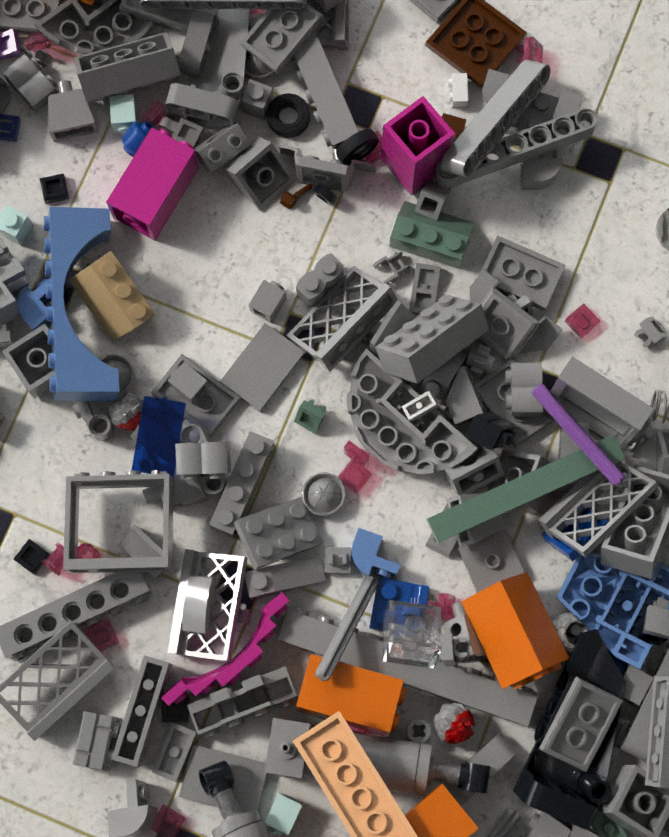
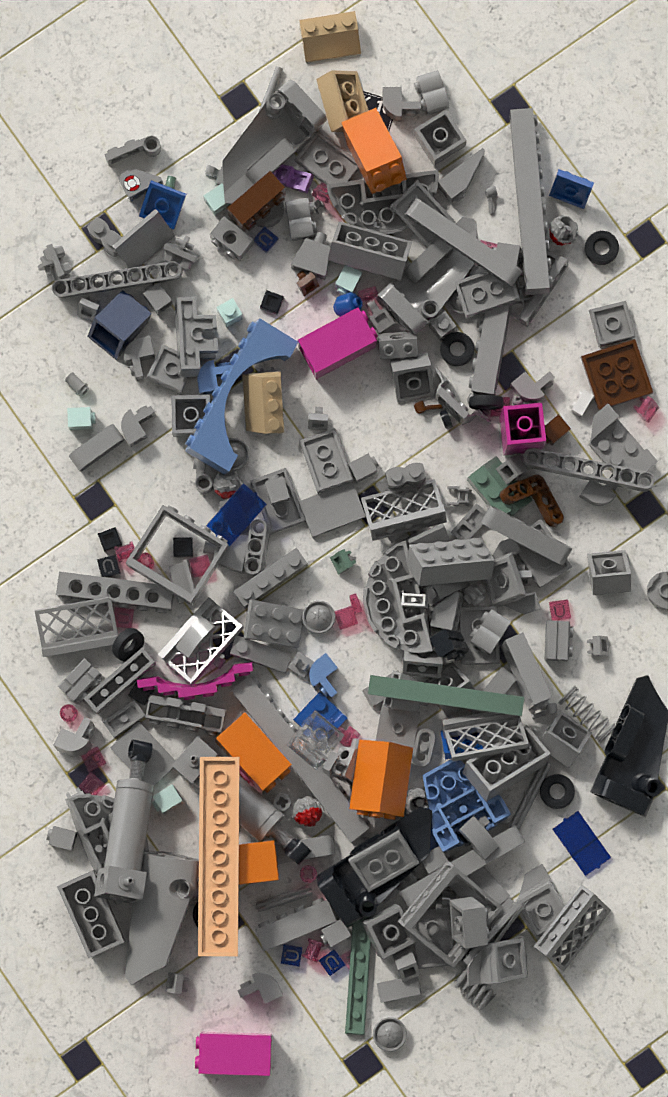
camera: 30 degrees right, 5 degrees up
(49, 587) = (108, 566): none -> black tile
(80, 143) = (307, 283): none -> reddish brown tile
(110, 780) = (74, 711): none -> clear pink bush
(116, 658) = (121, 641): none -> black tyre
(121, 513) = (183, 547): none -> black tile
(152, 522) = (199, 565): none -> clear pink tile
(185, 280) = (318, 419): none -> light grey tile
(203, 458) = (255, 547): light grey brick -> none
(222, 319) = (326, 461): none -> light grey tile
(346, 628) = (278, 710): light grey axle -> none
(388, 106) = (528, 389): none -> light grey brick
(477, 207) = (537, 492): none -> reddish brown beam
(496, 118) = (587, 442): light grey beam -> none
(496, 258) = (526, 535): none -> light grey beam
(506, 802) = (314, 873): none -> clear pink bush
(537, 565) = (423, 747): none -> light grey plate
(578, 435) = (500, 682): medium lavender axle -> none
(603, 352) = (557, 640): none -> light grey brick
(609, 246) = (609, 572): none -> light grey slope

